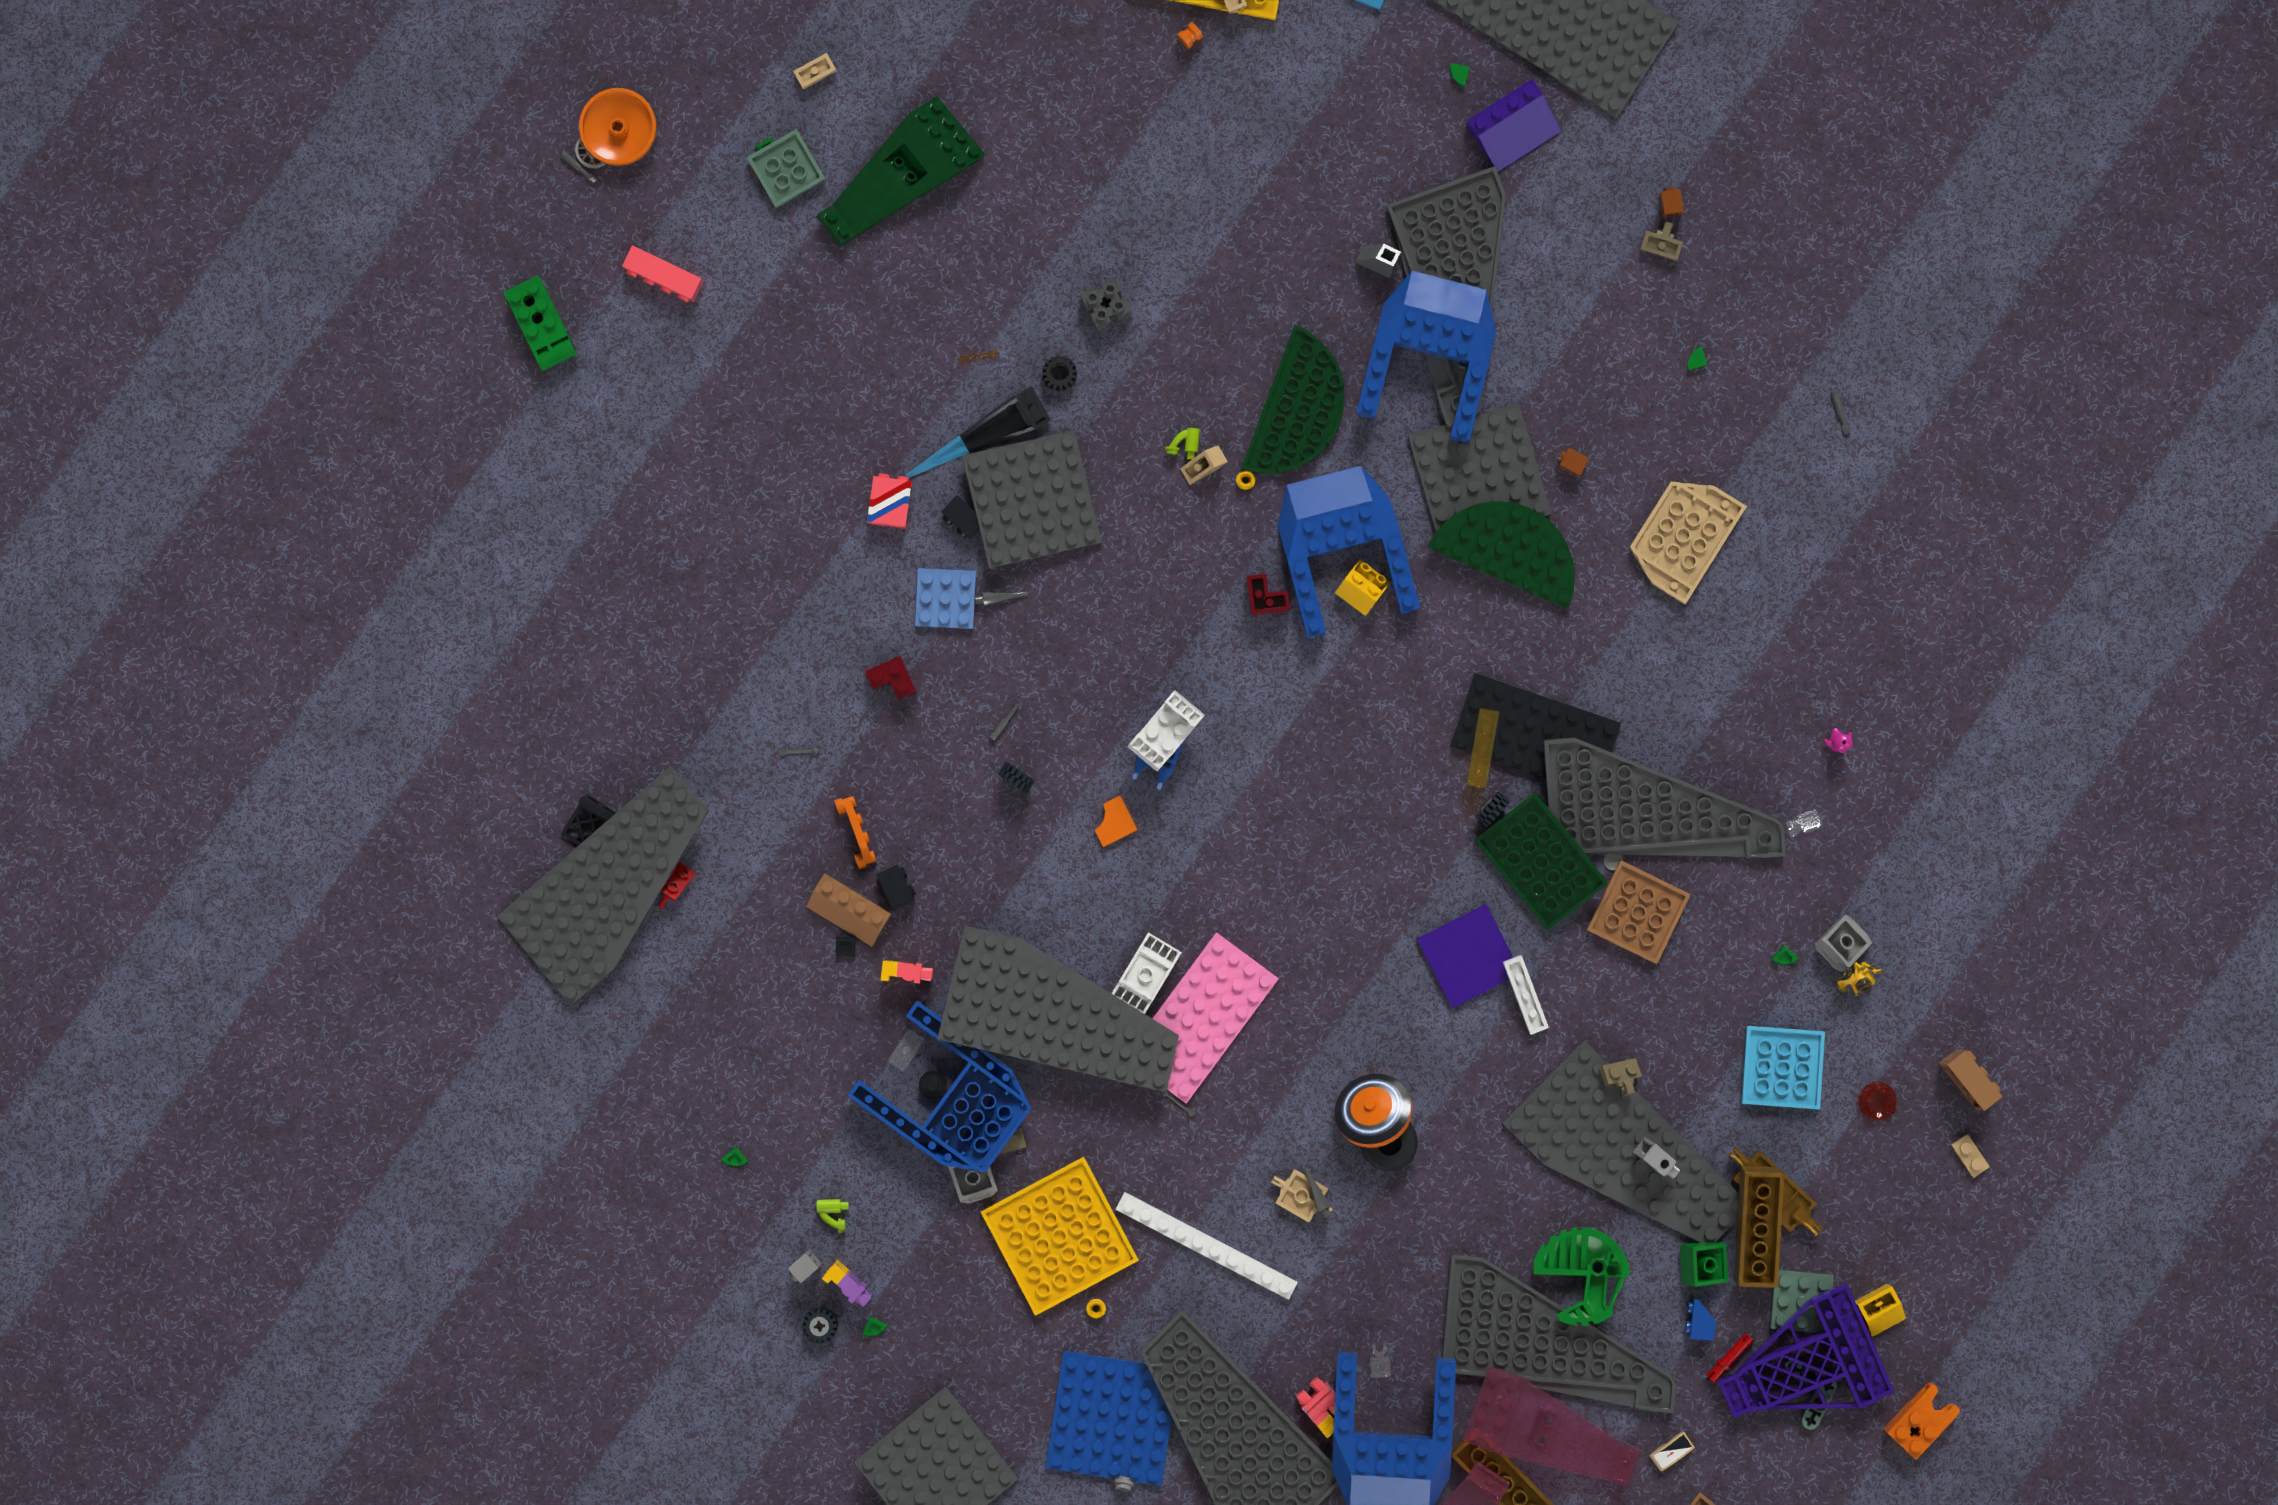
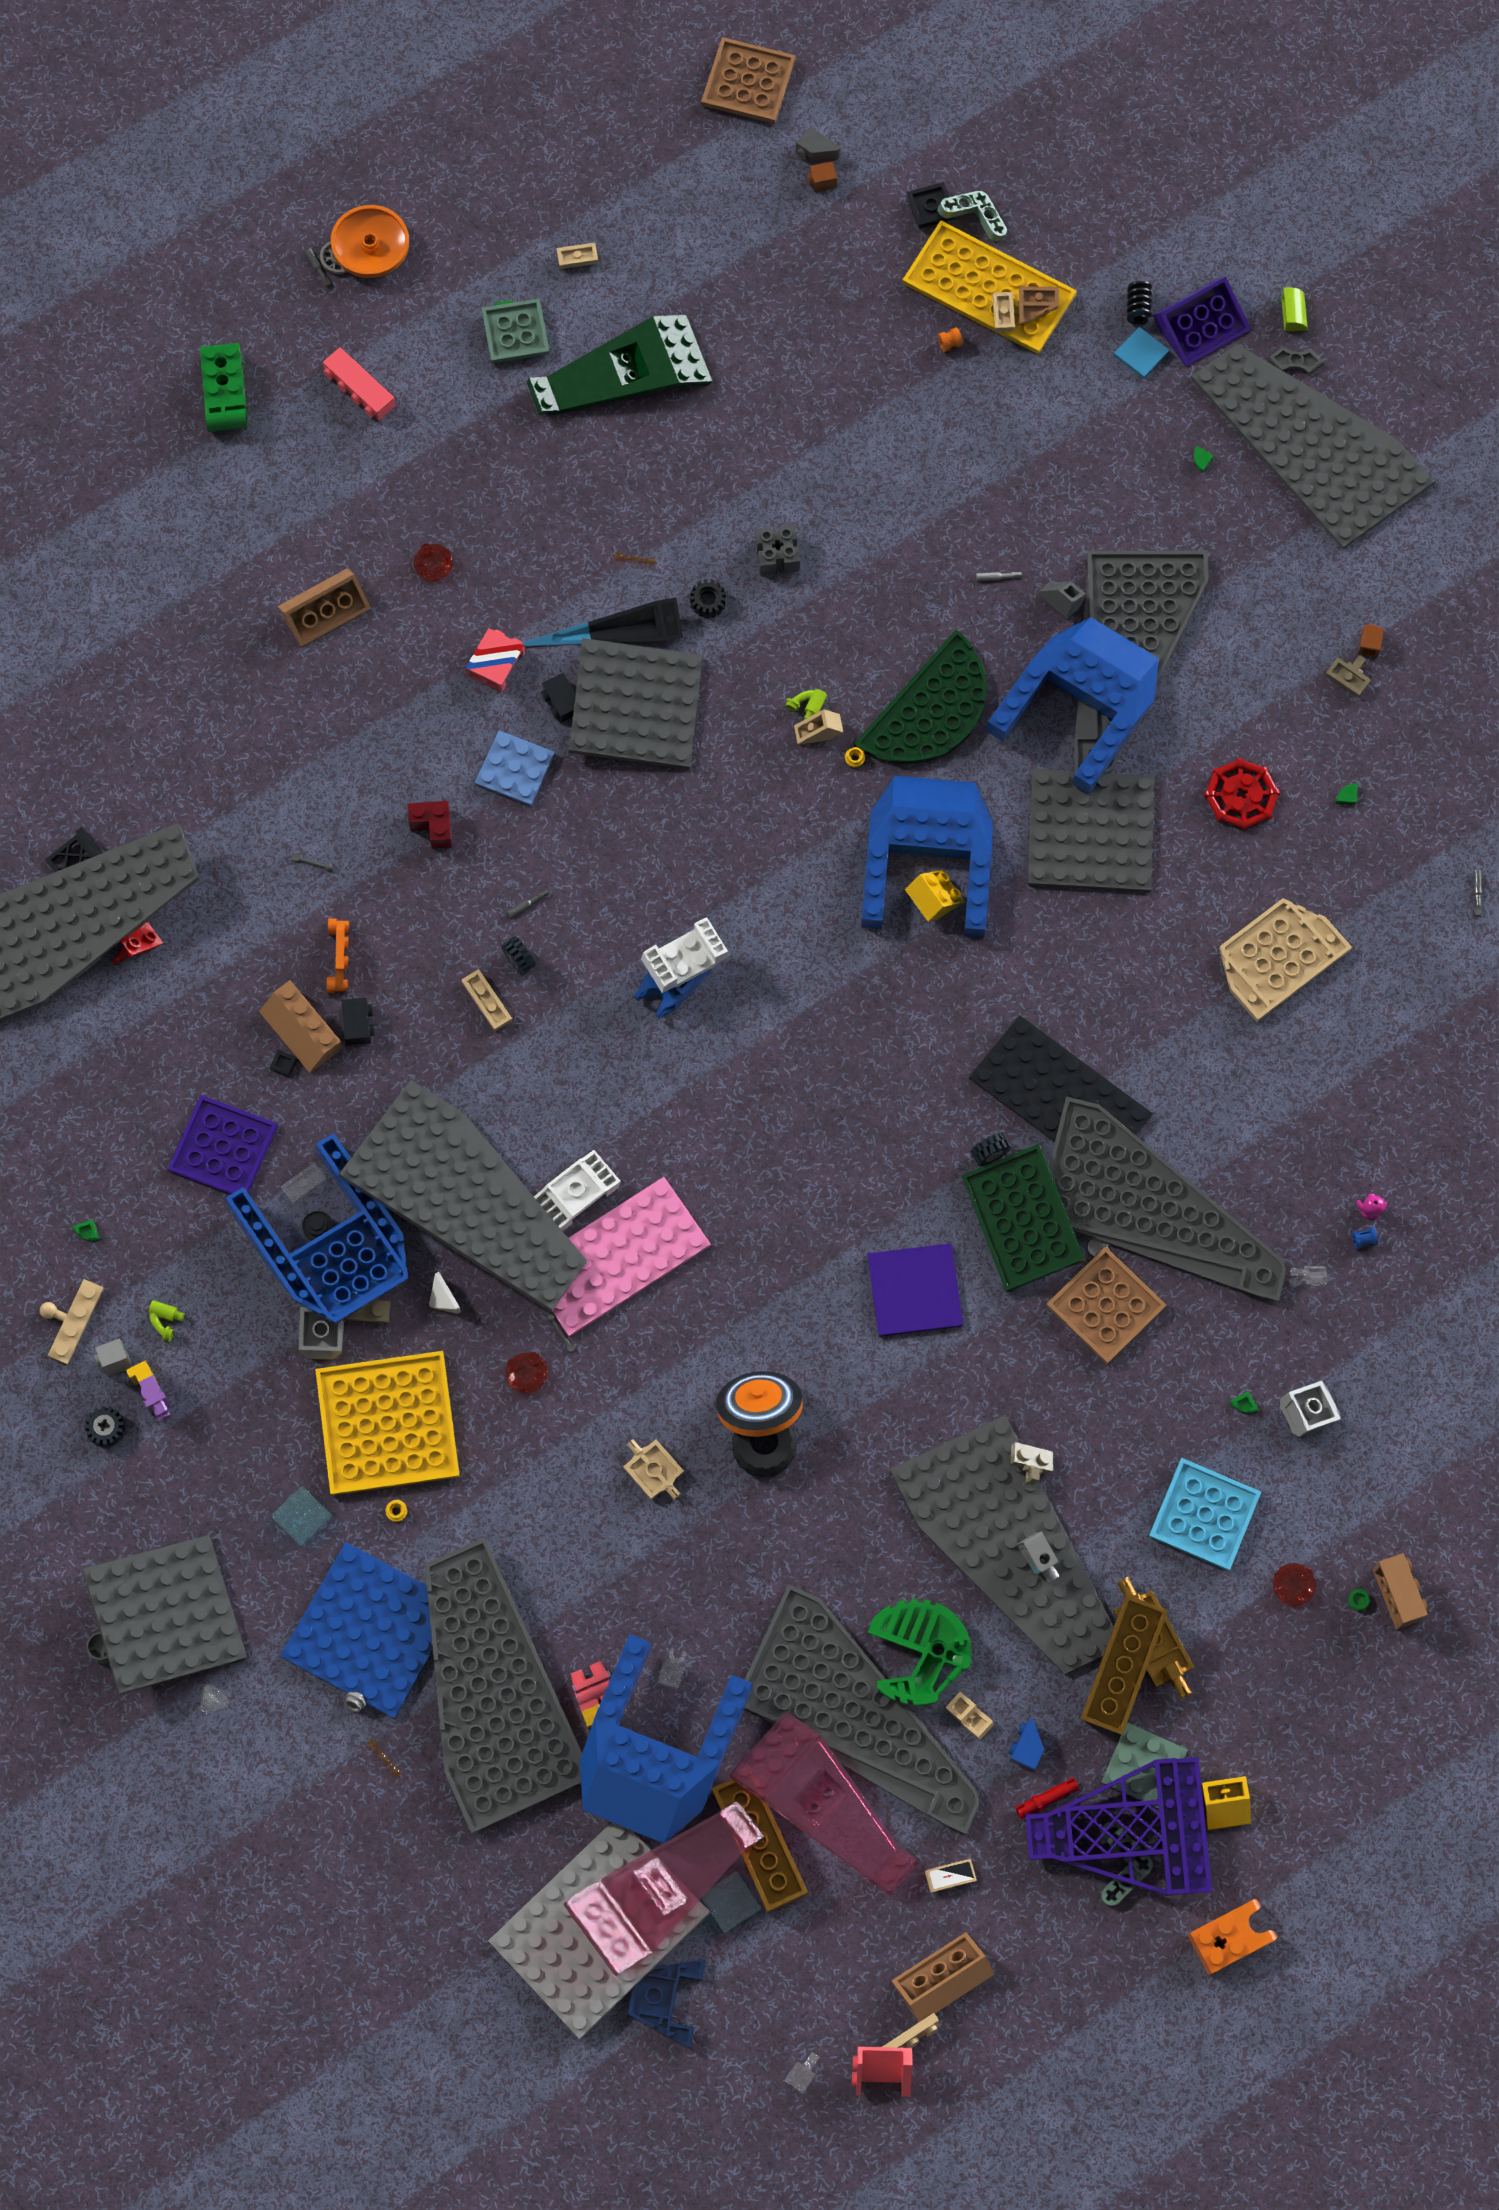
camera: 15 degrees right, 15 degrees down
(715, 505) = (324, 607): none -> medium nougat slope
(756, 1242) = (73, 1322): none -> tan plate
(797, 425) = (433, 562): none -> clear red dish
(822, 1041) = (222, 1146): none -> dark purple tile
(874, 1327) = (159, 1449): green tile -> none
(905, 970) = (333, 1102): coral hips -> none
(990, 598) = (559, 782): dark grey piece -> none
(1002, 826) = (486, 1000): none -> tan plate
(1017, 1342) = (301, 1516): none -> clear light blue tile
(1065, 1109) = (441, 1296): none -> white slope
(1116, 822) = (602, 1037): orange tile -> none
(1162, 1148) = (526, 1372): none -> clear red dish
(1206, 1245) = (536, 1487): white plate -> none
(1263, 602) = (830, 873): dark red brick -> none
(1311, 257) = (996, 576): none -> light grey piece
(1320, 1201) = (671, 1480): dark grey piece -> none
(1482, 748) = (1001, 1086): clear yellow plate -> none
(1511, 546) = (1099, 905): dark green plate -> none
(1513, 125) = (1238, 520): dark purple slope -> none
(1525, 994) = (959, 1346): white plate -> none
(1572, 462) = (1189, 847): dark orange brick -> none
(1602, 403) = (1245, 783): none -> red plate
(1642, 1310) = (969, 1715): none -> tan slope
(1703, 1263) = (1052, 1686): green slope -> none
(1841, 772) = (1364, 1238): none -> blue bush
(1859, 981) = (1315, 1450): animal -> none
(1936, 1094) = (1358, 1599): none -> green tile
(1970, 1155) = (1375, 1676): tan plate -> none

